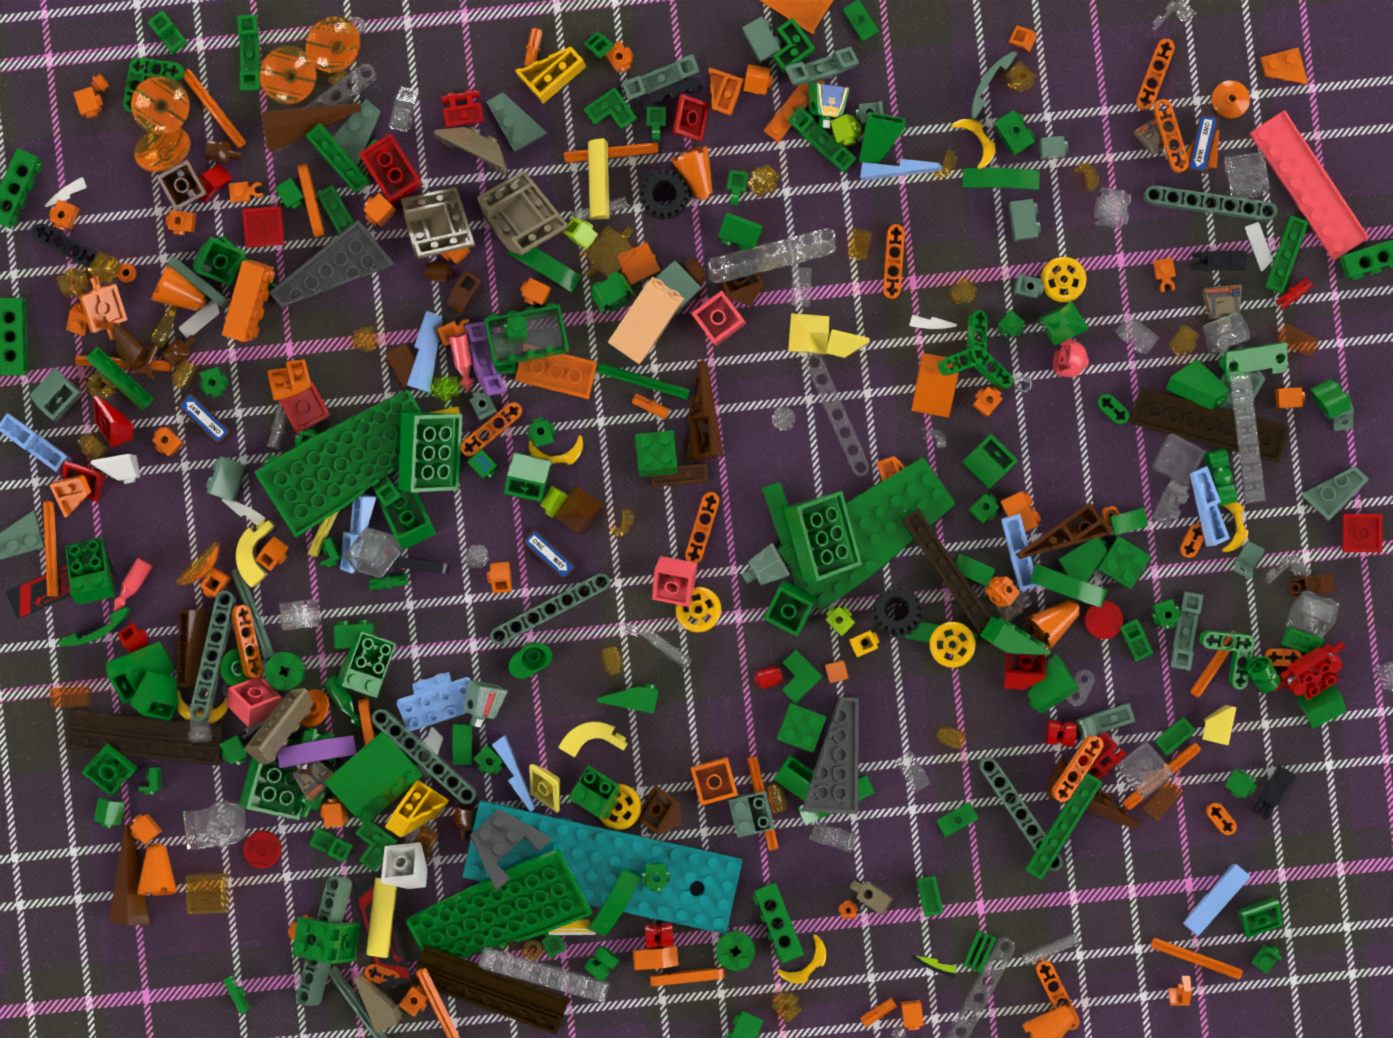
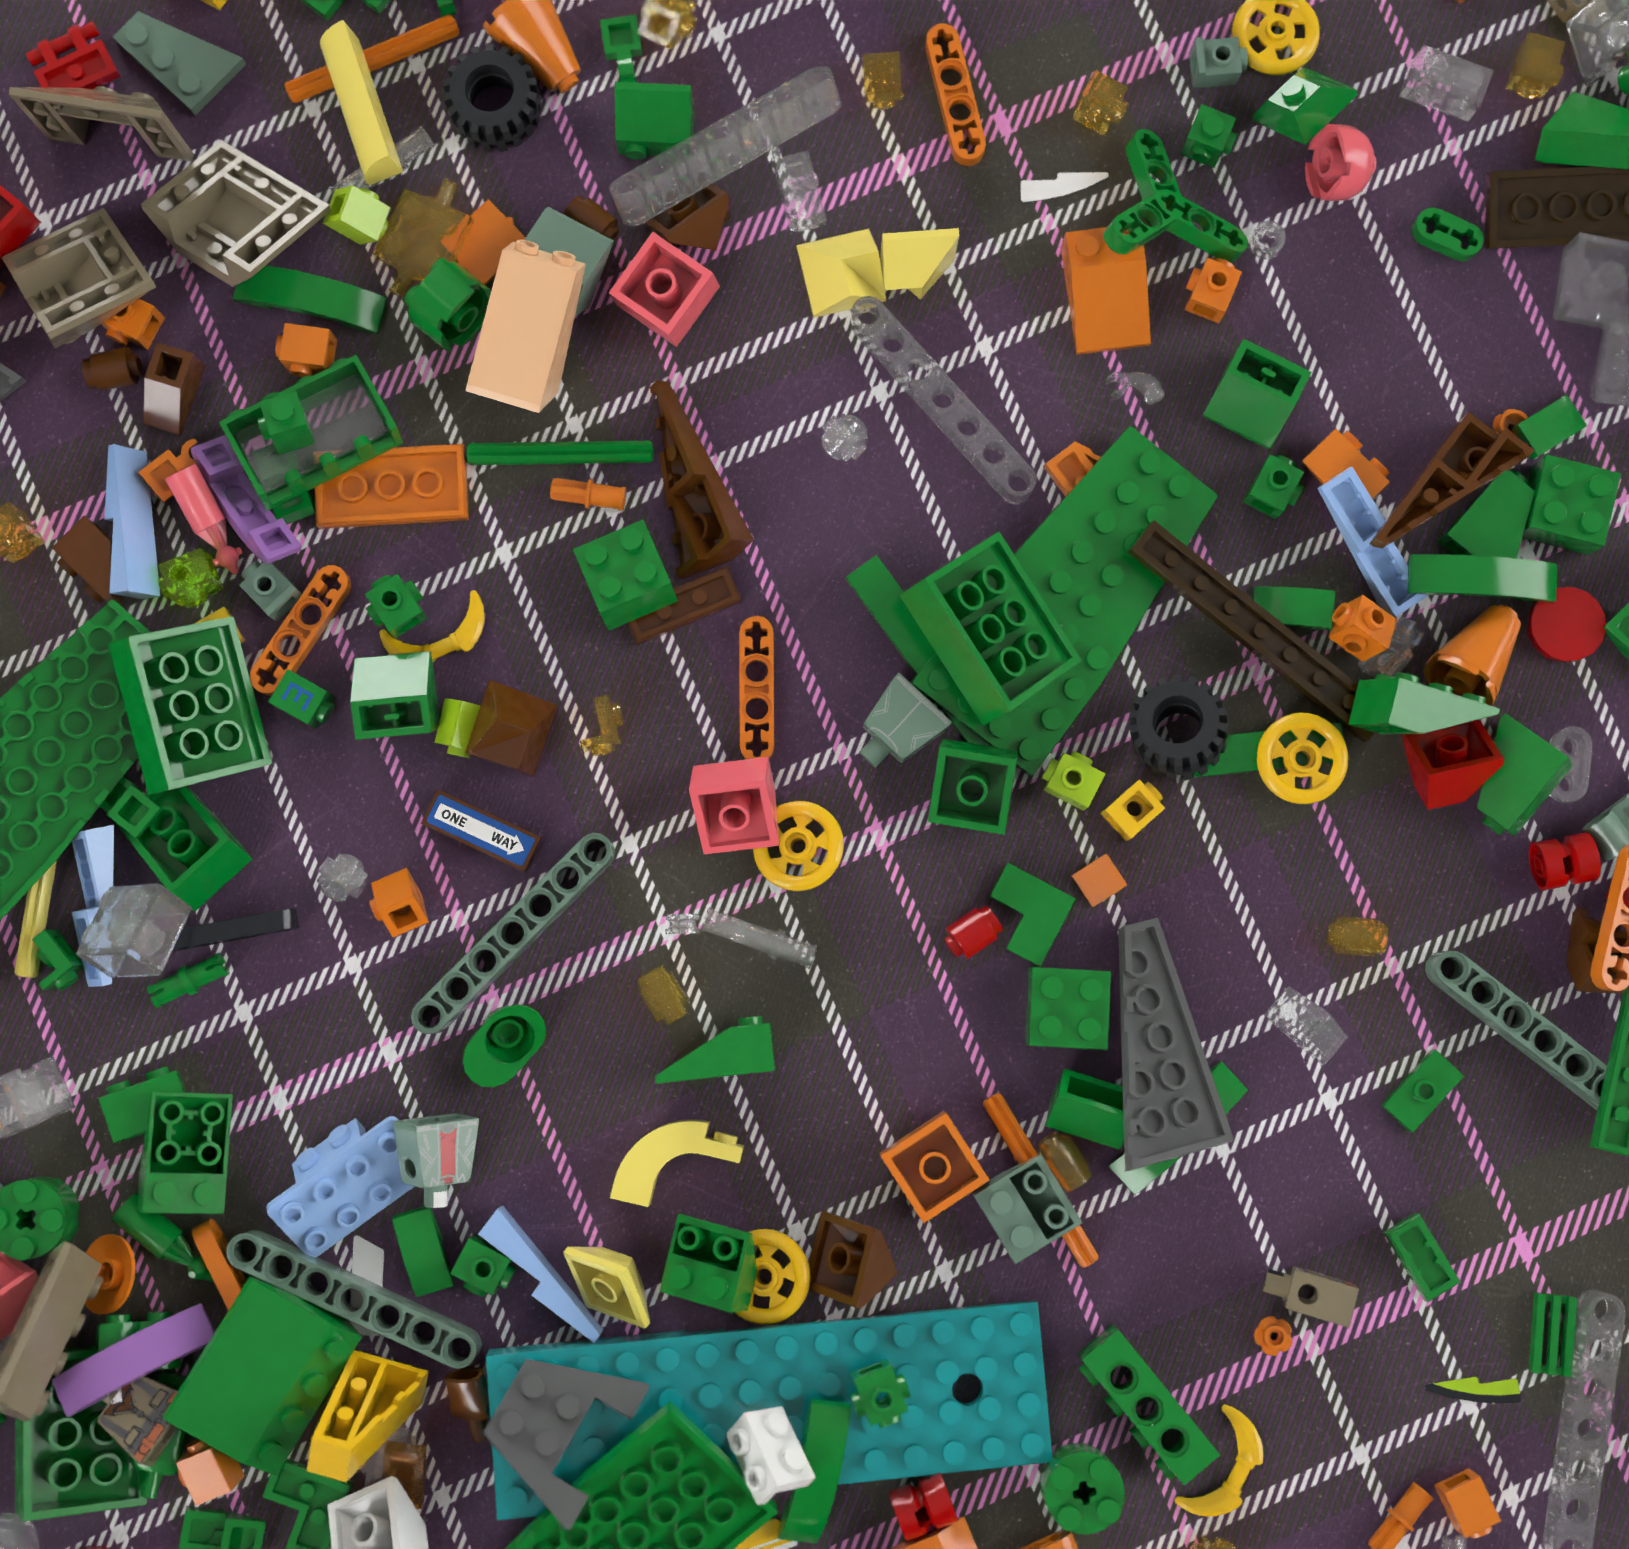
camera: 20 degrees left, 5 degrees down
(596, 886) = (769, 1453): none -> white bracket
(833, 836) = (1197, 1201): clear slope -> none

